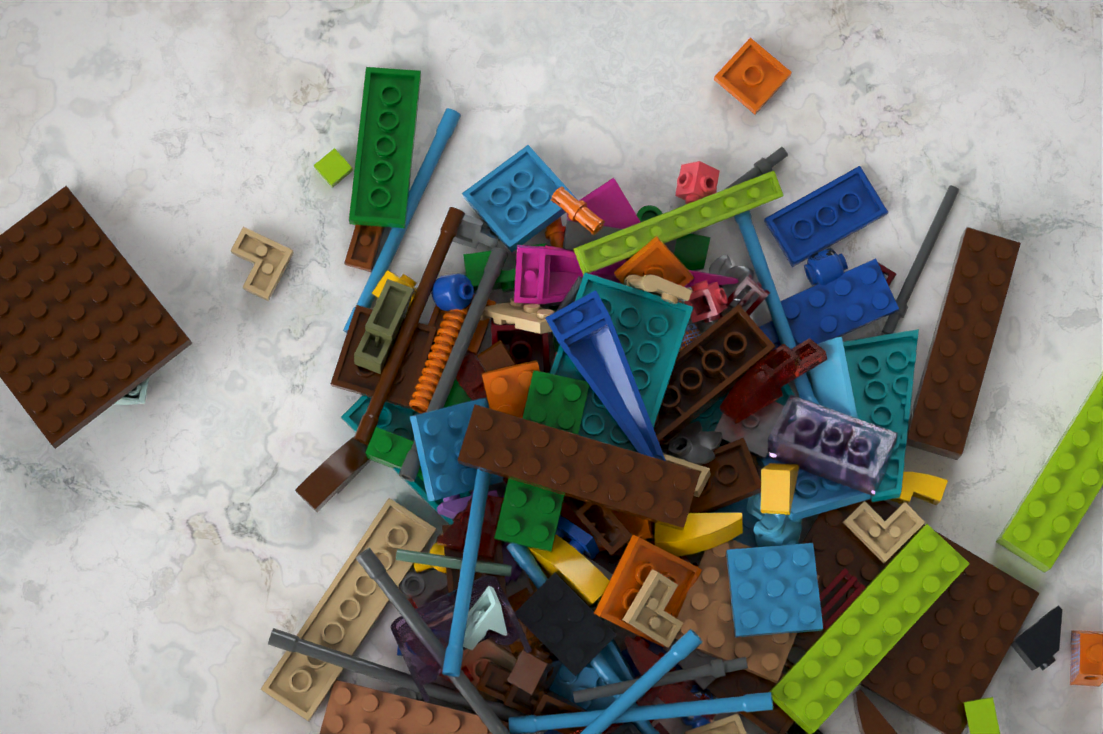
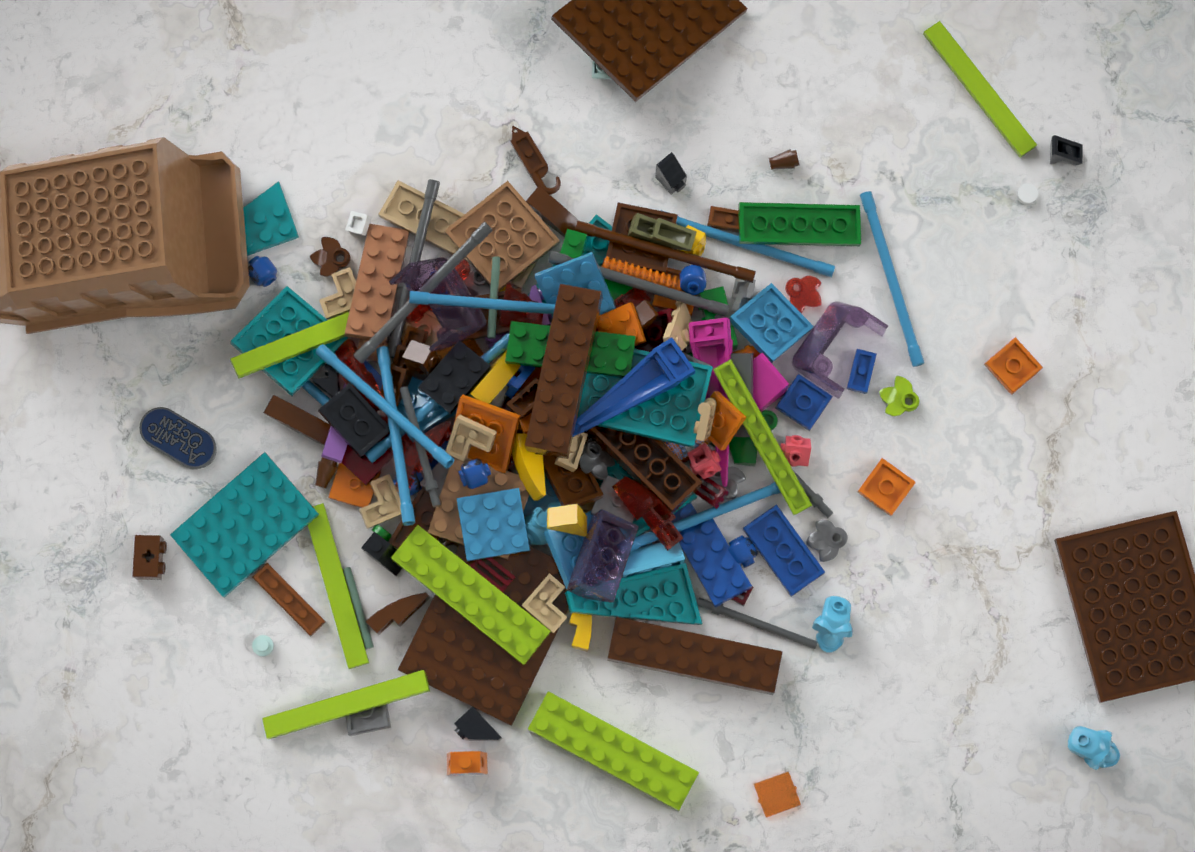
camera: 85 degrees right, 0 degrees up
(250, 498) = (532, 159): none -> reddish brown plate
(268, 259) = (706, 153): tan plate -> none
(291, 158) = (784, 160): none -> reddish brown cone
(297, 309) = (671, 174): none -> black slope
(333, 167) = (781, 190): lime tile -> none
(343, 528) = (516, 237): none -> medium nougat plate
(371, 55) = (913, 348): none -> dark azure piece
(481, 150) = (807, 293): none -> clear red plate
(483, 616) = (452, 317): light aqua slope -> none
(550, 138) = (810, 358): none -> clear purple windscreen
(577, 210) = (759, 358): orange pin -> none
(594, 90) = (861, 371): none -> blue plate
(630, 50) = (896, 397): none -> lime plate
(632, 167) = (803, 402): none -> blue plate
(704, 608) = (474, 474): none -> blue head
(816, 163) = (824, 541): none -> flat silver plate
(928, 161) = (833, 623): none -> medium azure head

